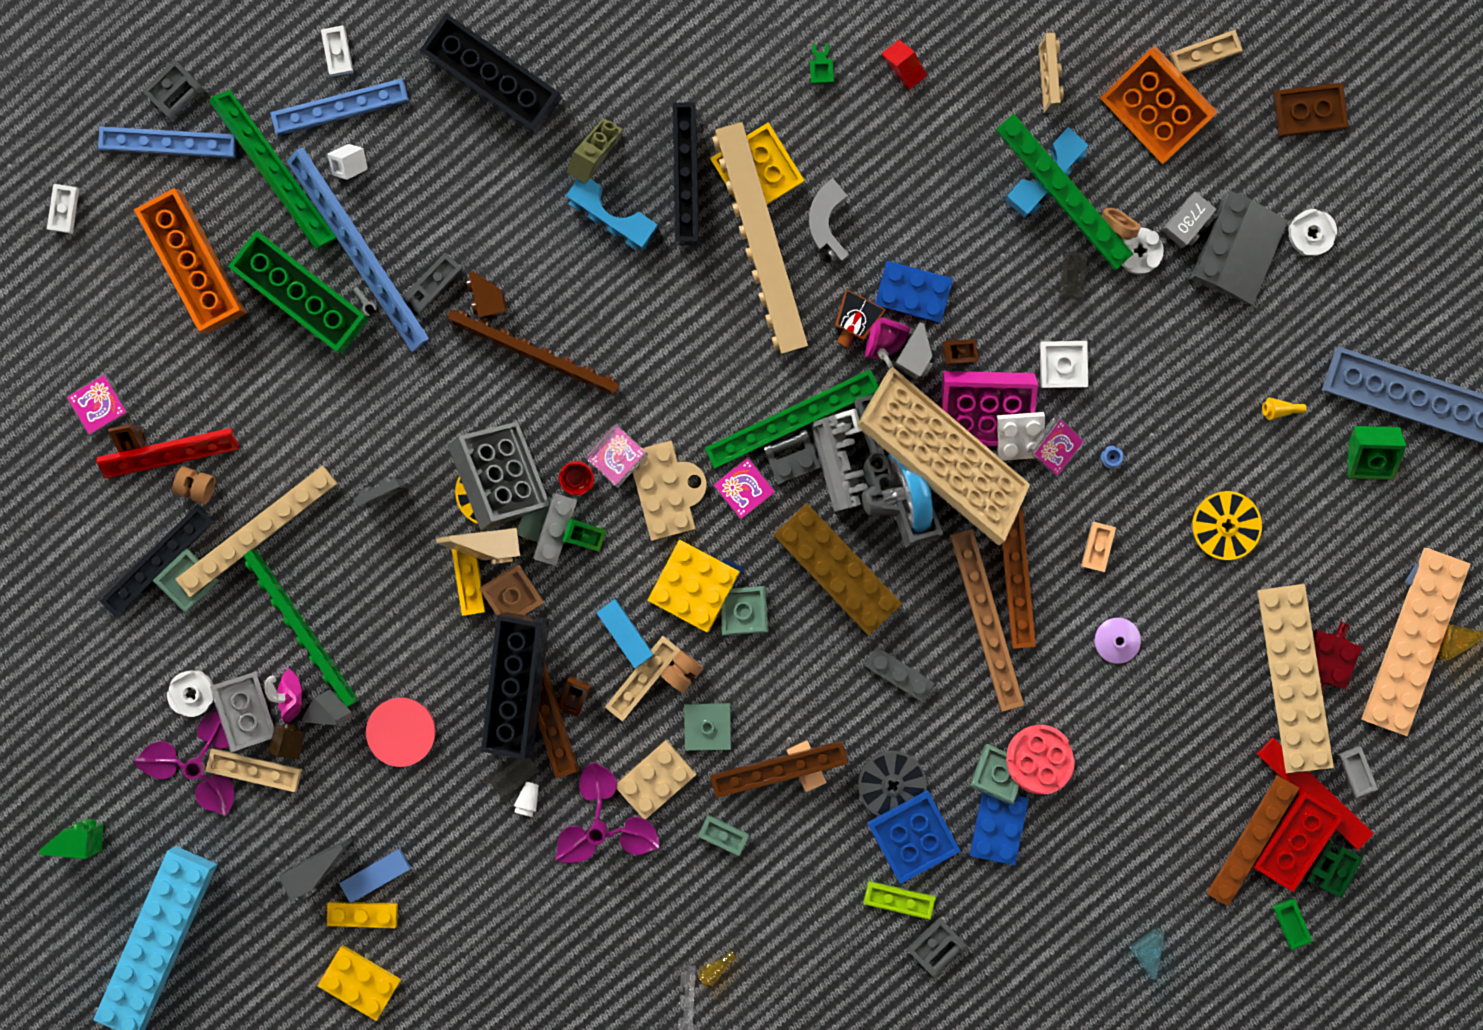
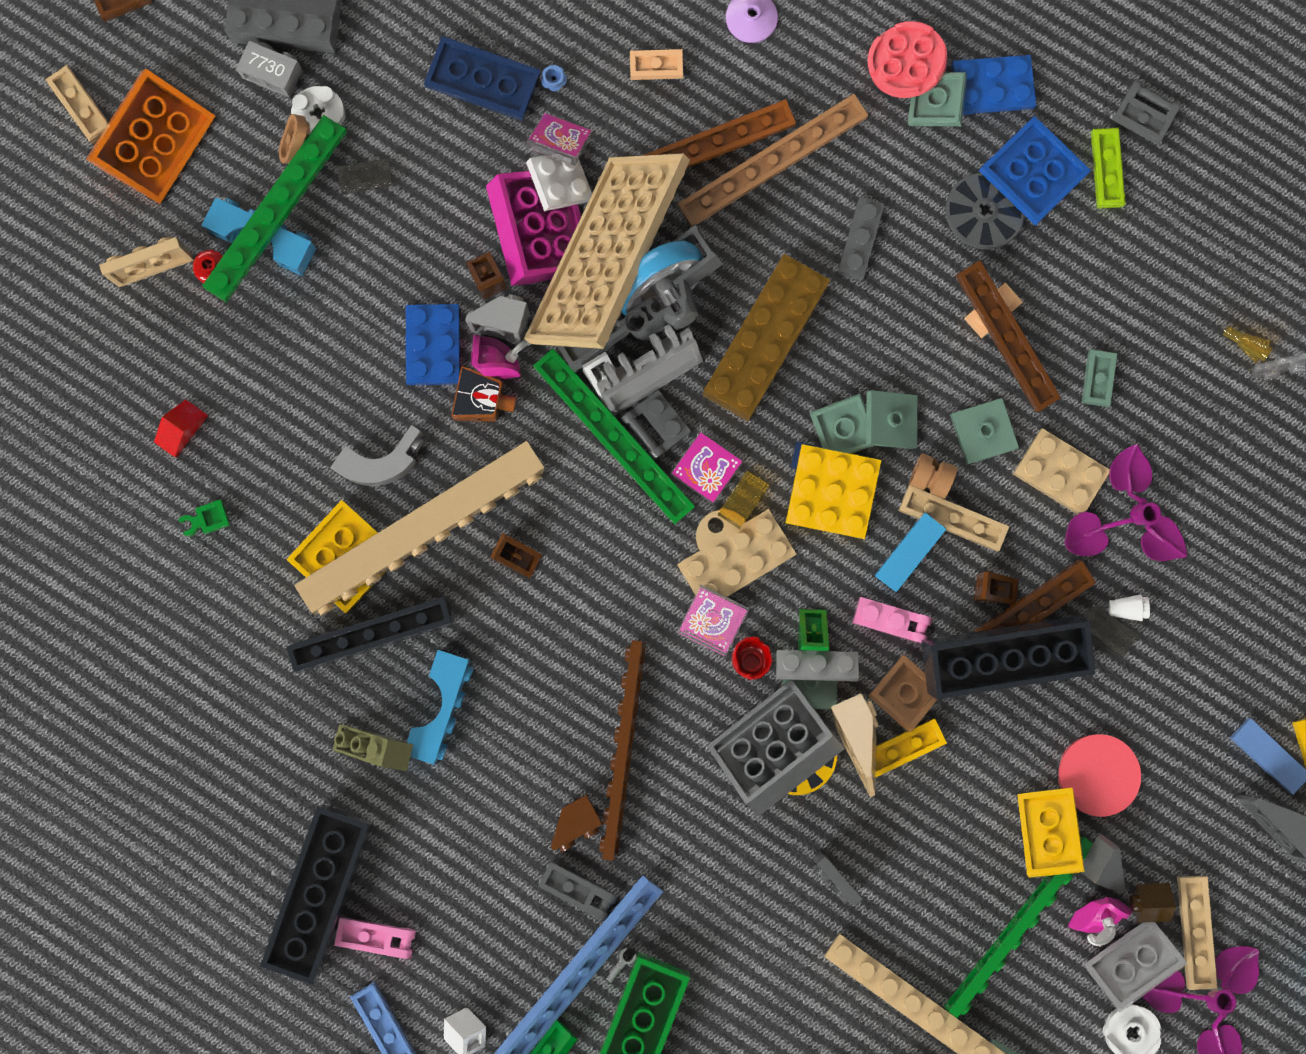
camera: 110 degrees left, 5 degrees down
(366, 676) = (1050, 832): none -> yellow plate
(443, 110) = (374, 937): none -> bright pink plate
(575, 601) = (890, 620): none -> bright pink plate
(708, 510) = (743, 500): none -> clear yellow tile
(716, 310) = (515, 555): none -> reddish brown slope
(738, 652) = (891, 419): none -> sand green plate
(1035, 120) = (205, 263): none -> red head
(1064, 364) = (466, 157): white plate -> none
(1129, 396) = (482, 78): none -> dark blue plate

